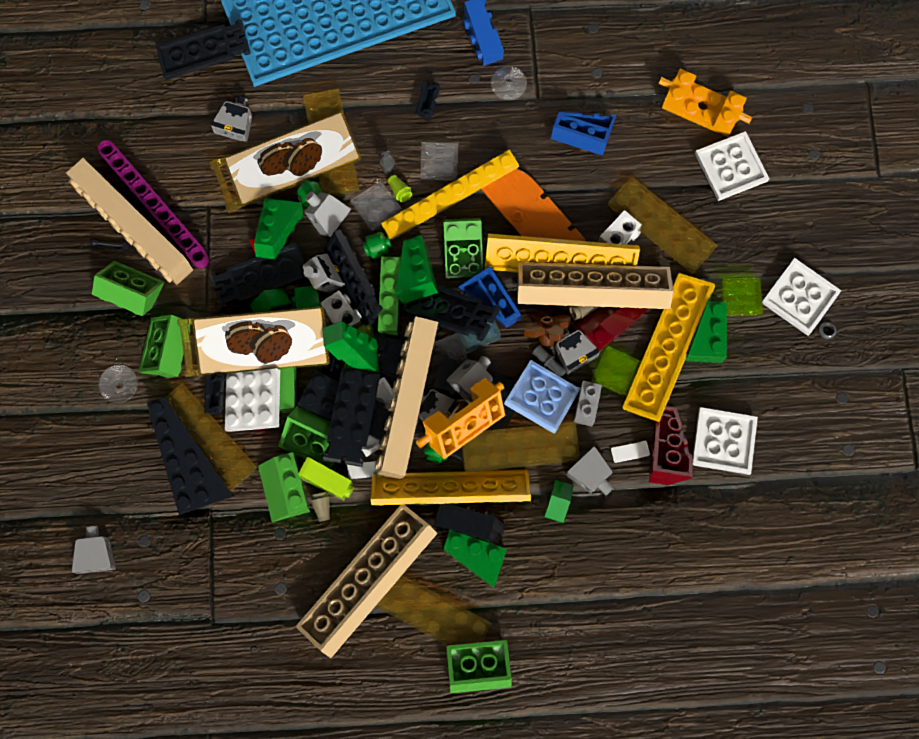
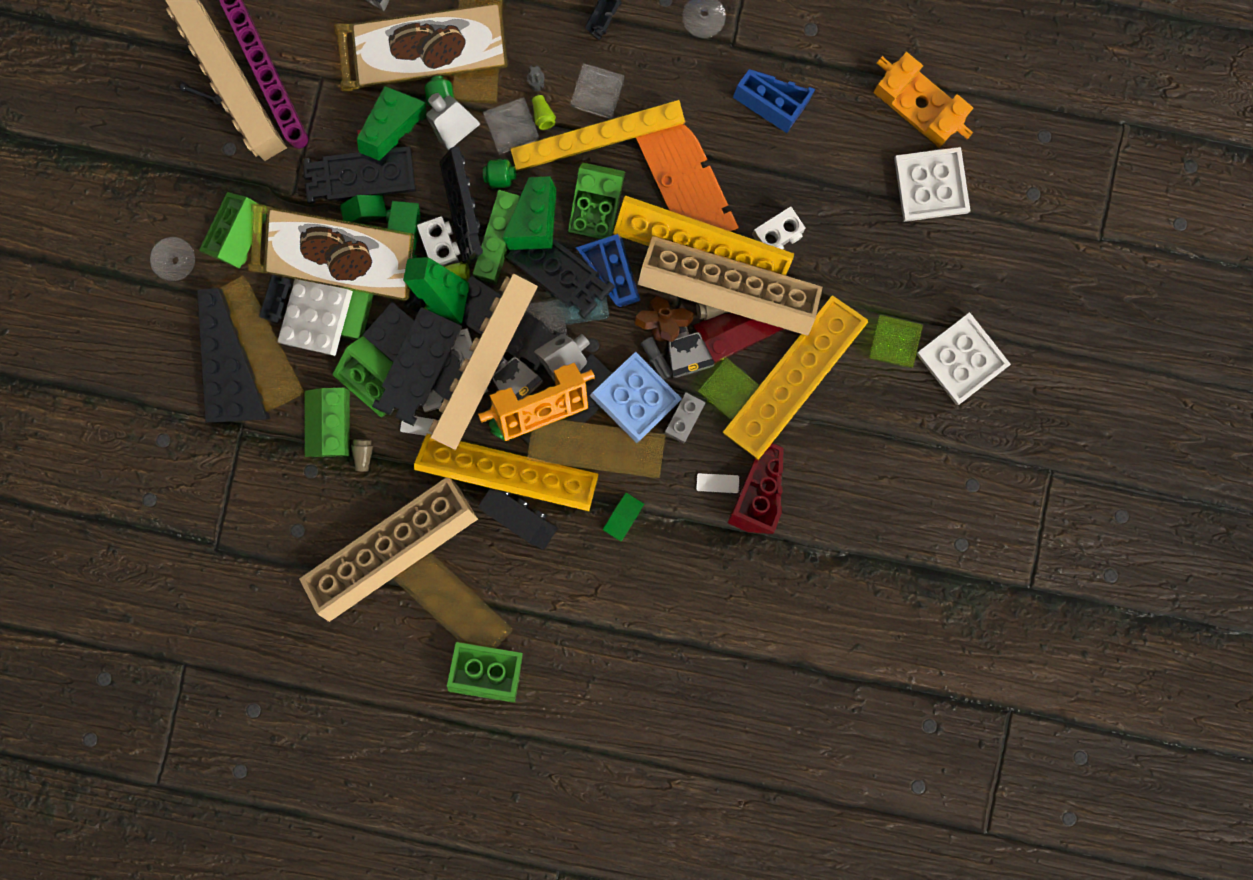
camera: 15 degrees right, 10 degrees up
(92, 553) = (103, 440): light grey torso -> none
(127, 287) = (207, 150): bright green slope -> none
(323, 273) = (429, 192): light grey torso -> none
(326, 479) = (373, 427): lime slope -> none
(476, 555) = (515, 554): green wedge -> none
(591, 472) = (667, 496): light grey torso -> none
(663, 225) = (831, 233): clear yellow plate -> none
(711, 335) = (846, 376): green wedge -> none
(724, 441) = (825, 499): white plate -> none
(823, 335) = (988, 405): dark grey piece -> none

